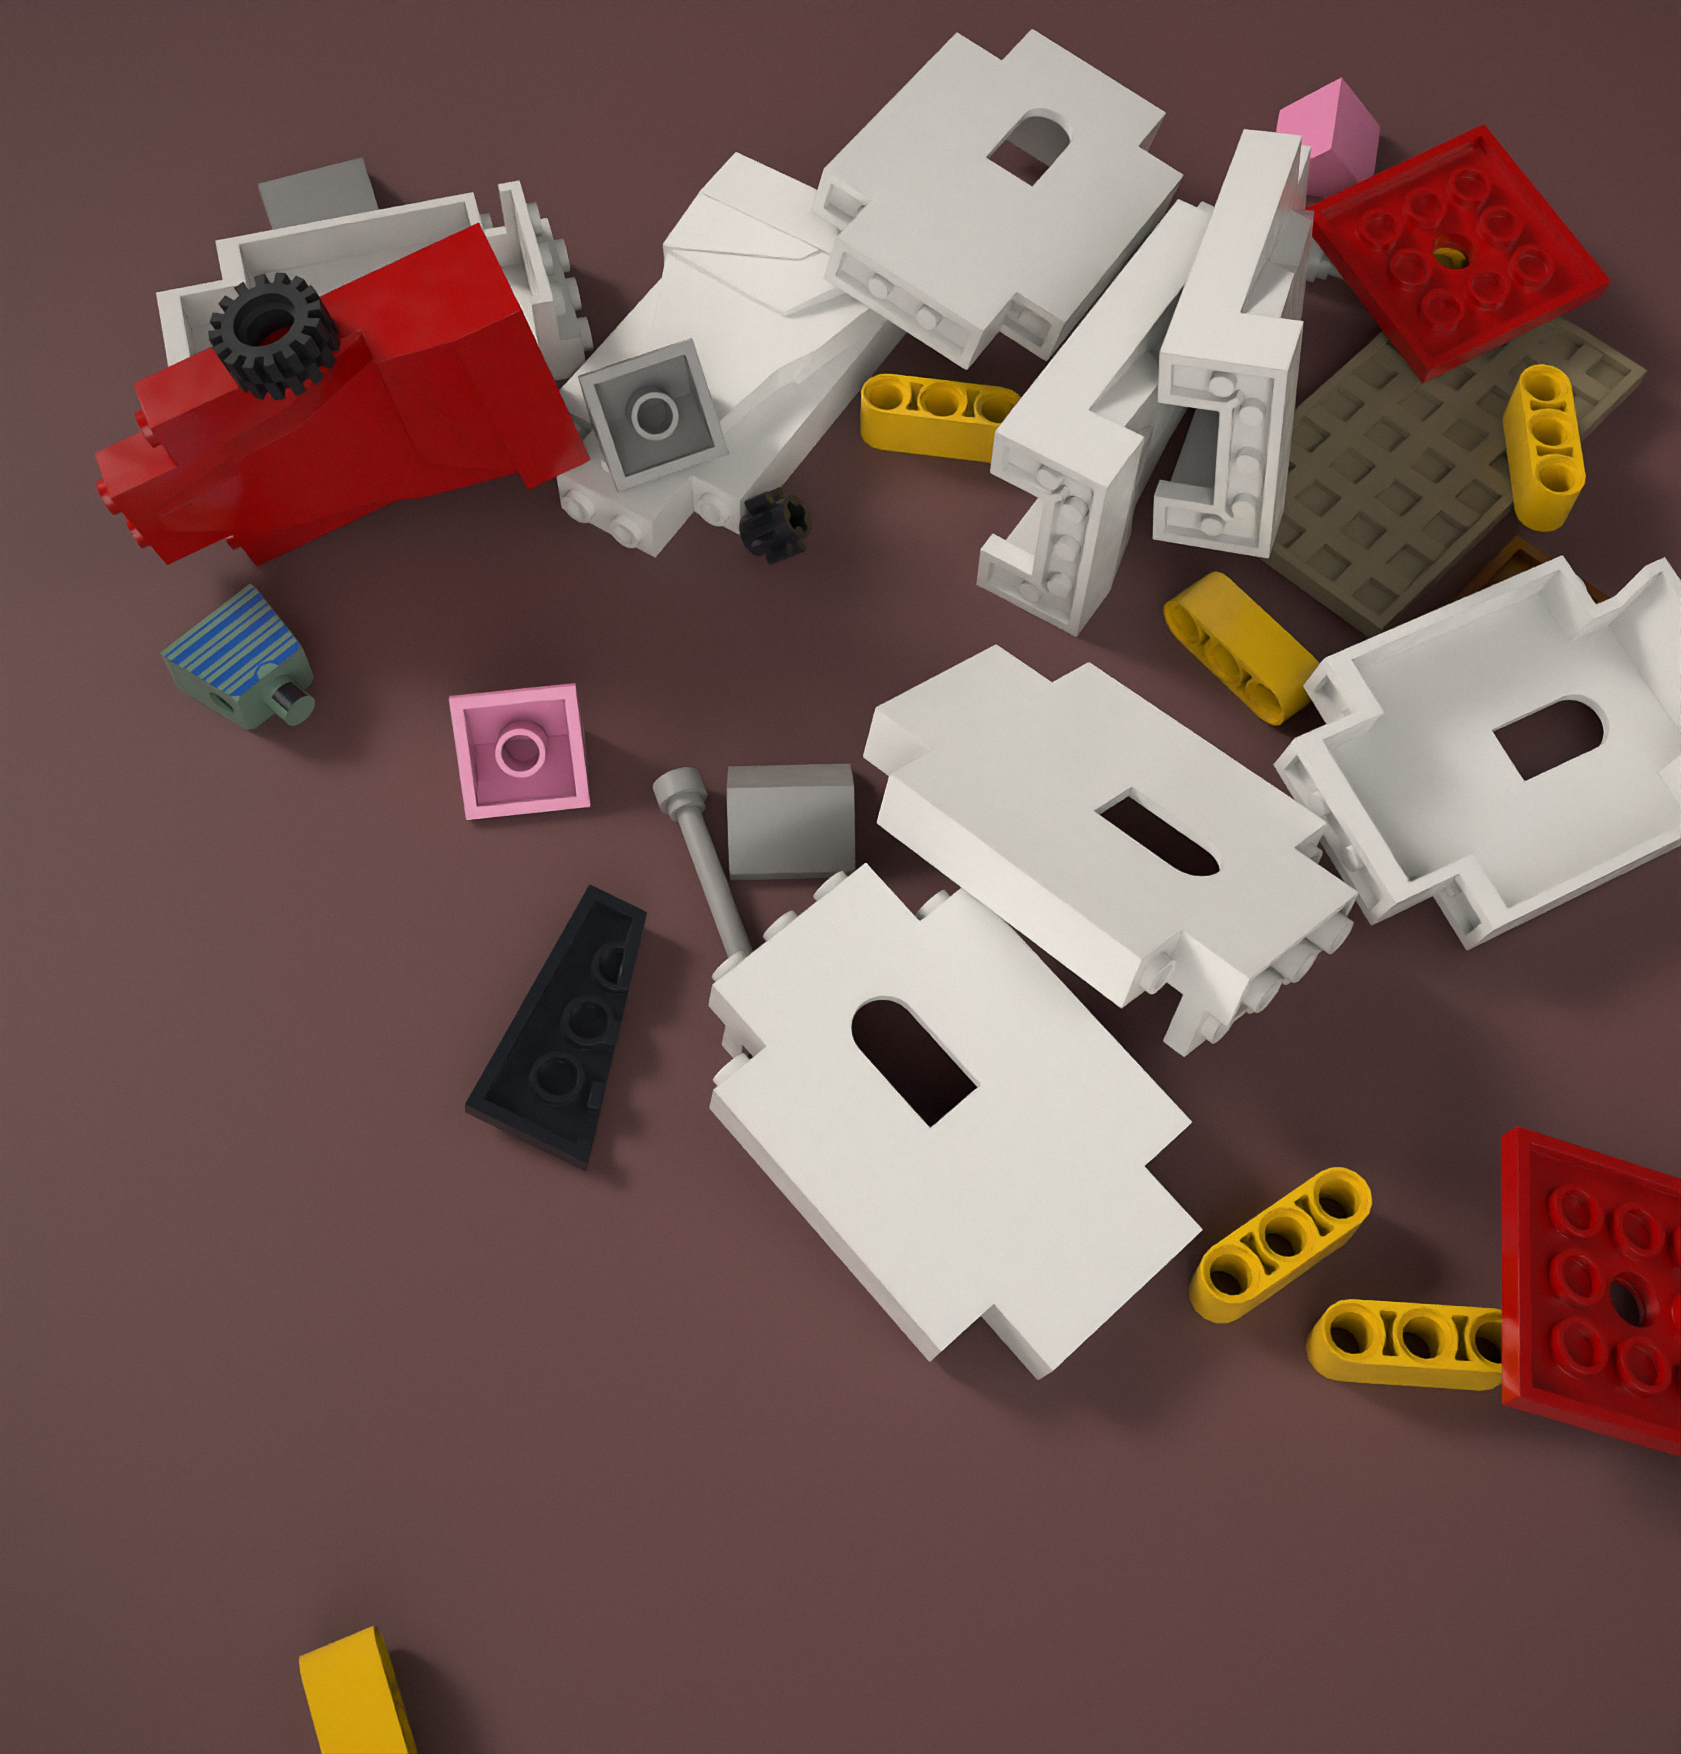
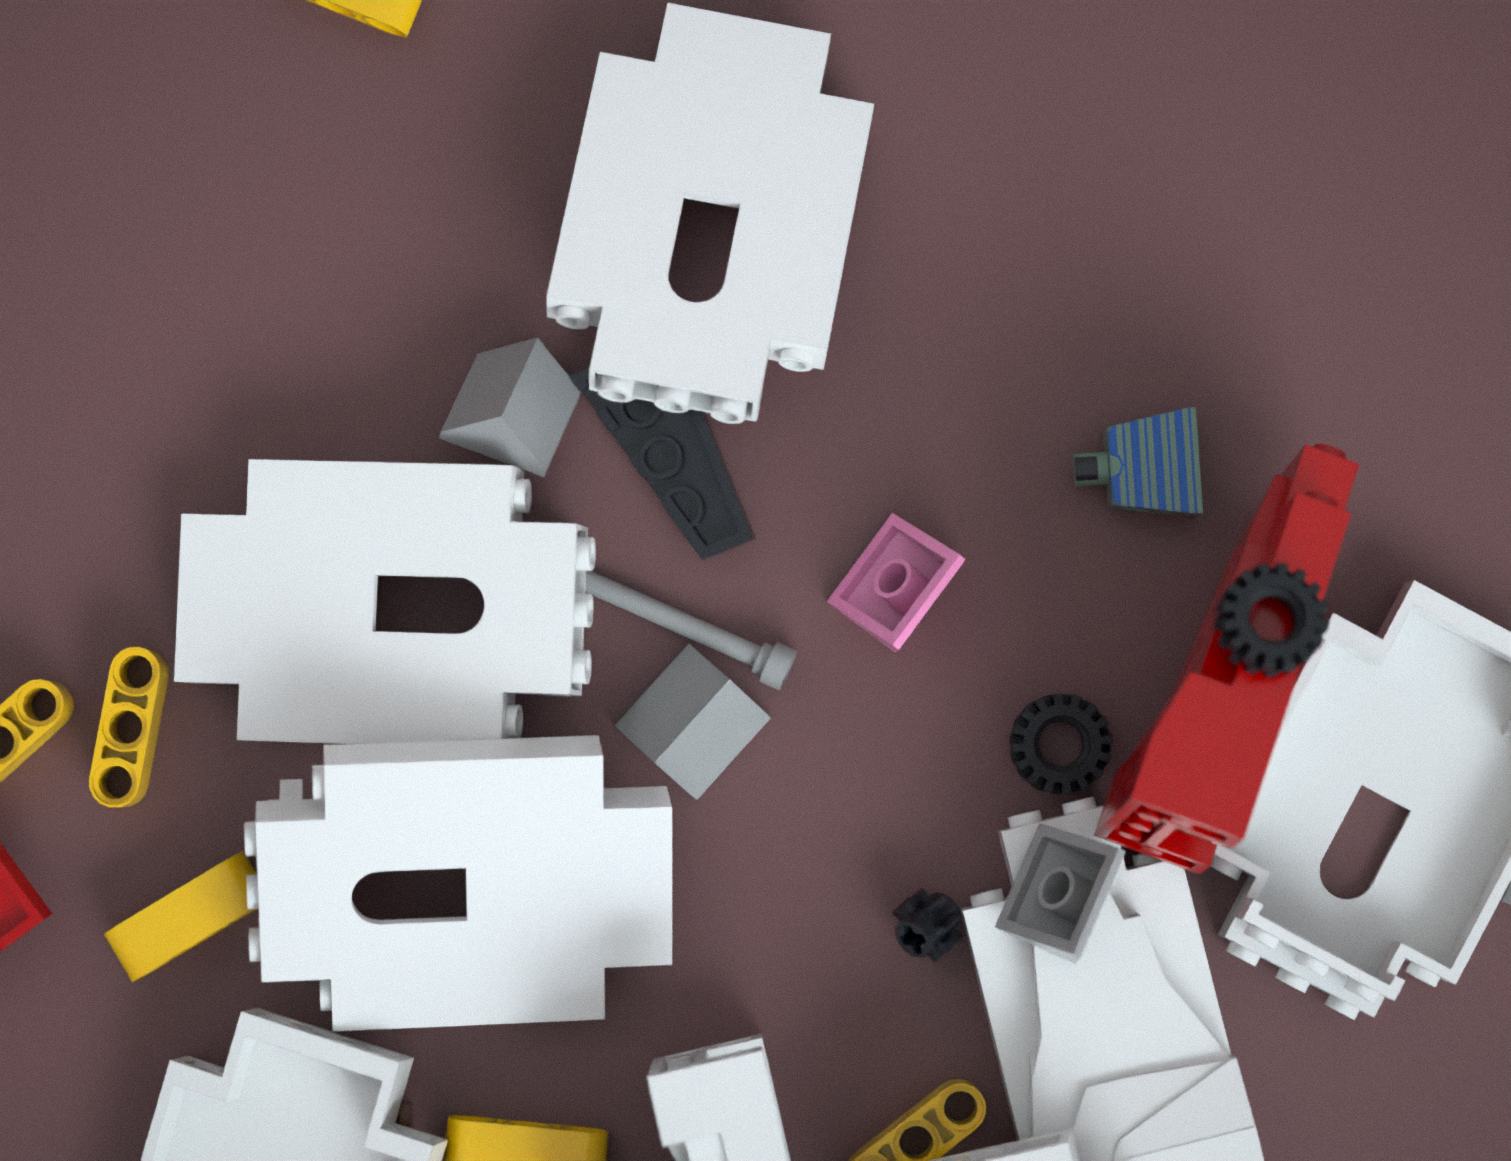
camera: 135 degrees right, 25 degrees up
(213, 1223) = (726, 122): none -> white panel
(535, 530) = (1094, 736): none -> black tyre
(662, 1177) = (513, 406): none -> light grey slope
(1370, 1046) = (182, 918): none -> yellow beam

